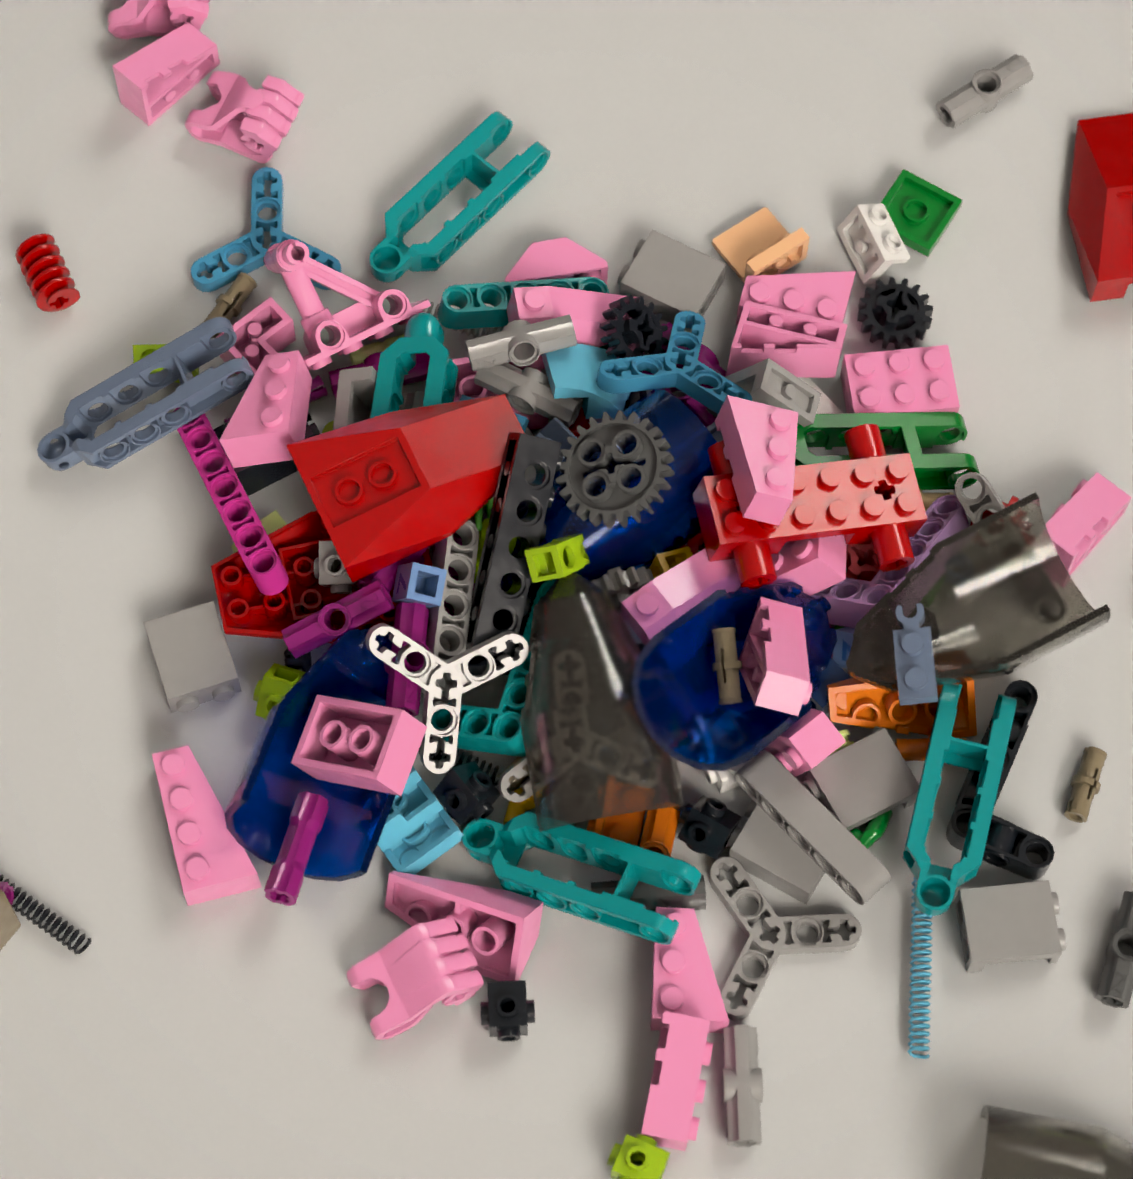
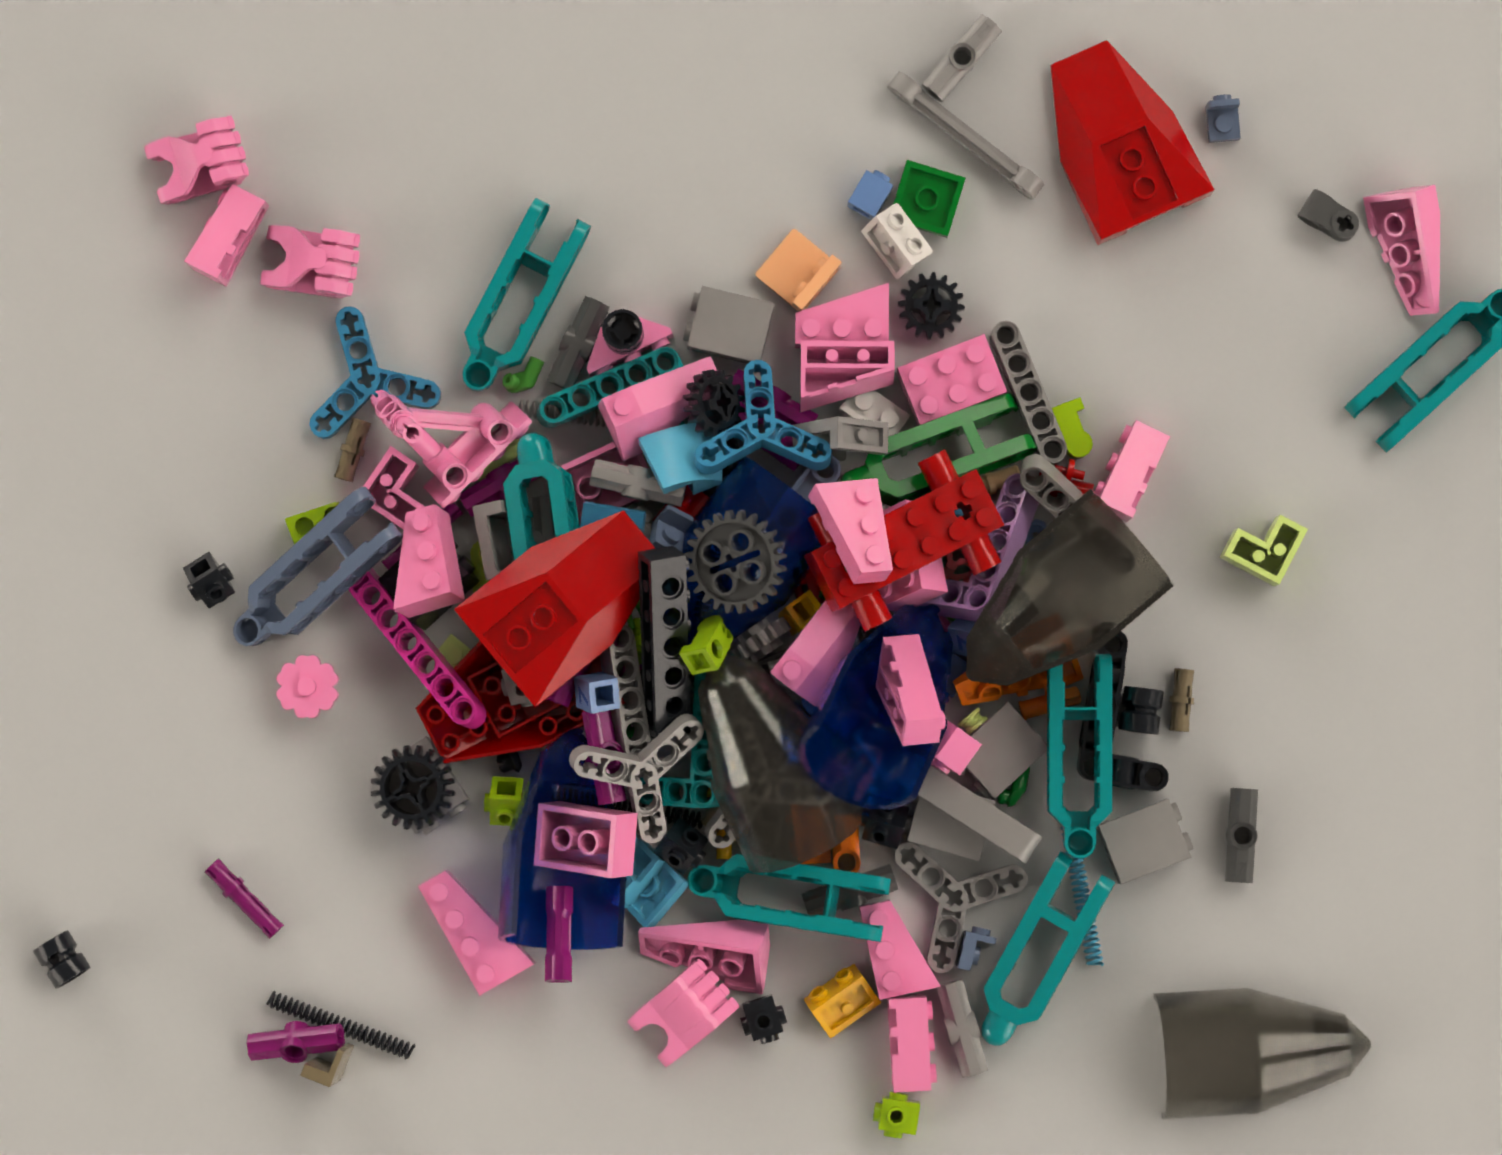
camera: 10 degrees left, 20 degrees up
(30, 389) = (209, 580): none -> black brick
(46, 273) = (186, 466): red piece -> none
(99, 517) = (307, 686): none -> bright pink plant
(152, 645) = (407, 774): none -> black gear
(317, 628) = (550, 725): magenta piece -> none
(437, 283) = (523, 380): none -> bright green arm
(504, 253) = (578, 343): none -> dark grey piece
(521, 342) = (622, 451): light grey piece -> none
(555, 243) = (623, 331): none -> black wheel
(607, 1017) = (841, 1000): none -> yellow bracket
(727, 666) = (869, 699): dark tan pin -> none
(772, 999) = (969, 952): none -> sand blue bracket
(797, 1081) = (1005, 1017): none -> teal piece
(855, 188) = (870, 194): none -> medium blue brick
(914, 659) = (1022, 662): sand blue plate -> none
(985, 409) = (1028, 377): none -> light grey beam
(1019, 467) = (1077, 440): none -> lime leg
(1024, 217) = (912, 94): none -> light grey piece
(1035, 779) = (1141, 710): none -> black wheel

